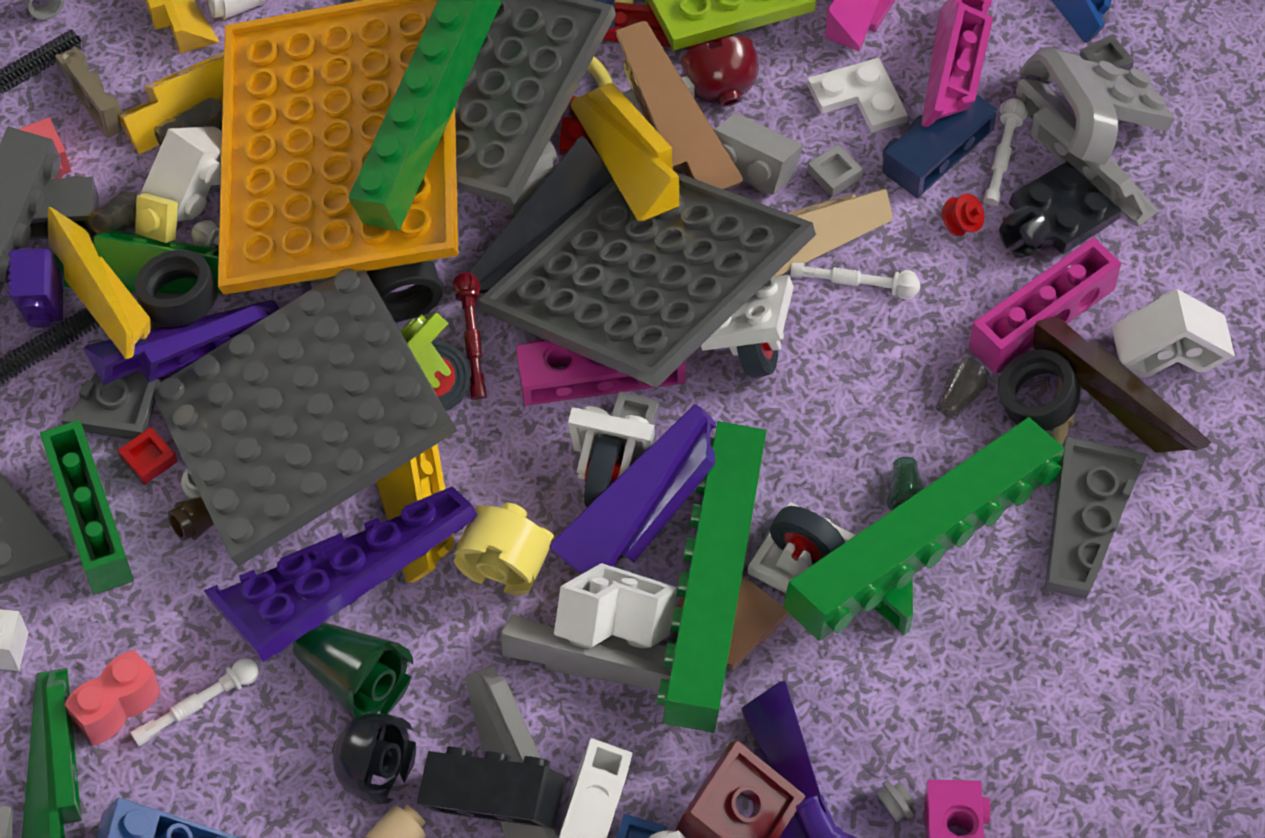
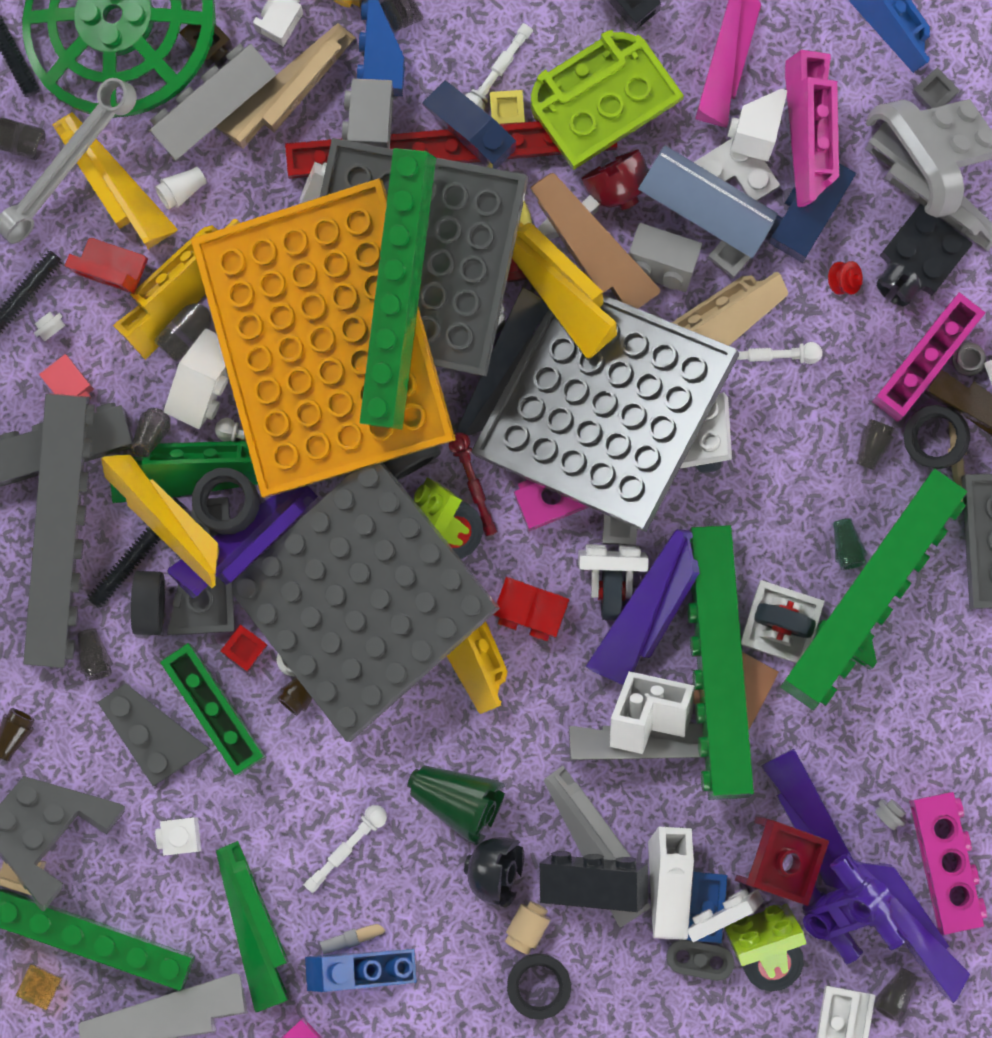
camera: 15 degrees left, 25 degrees up
(36, 286) = (110, 525): dark purple brick -> none
(43, 97) = (48, 325): none -> white plate
(49, 377) = (147, 603): none -> black tyre
(90, 91) = (83, 307): dark tan hinge -> none
(105, 702) = (279, 873): coral brick -> none
(127, 54) = (109, 265): none -> red panel
(156, 217) = (184, 429): light yellow plate -> none
(181, 807) = (351, 938): none -> light grey piece
(331, 574) = (417, 737): dark purple wing -> none
(500, 476) = (530, 608): none -> red brick
(503, 548) = (550, 675): light yellow brick -> none
(819, 104) = (708, 201): none -> sand blue brick
(894, 46) = (758, 126): none -> white slope
(1012, 115) = (867, 162): white piece -> none
(1095, 324) = (969, 359): none -> light grey plate

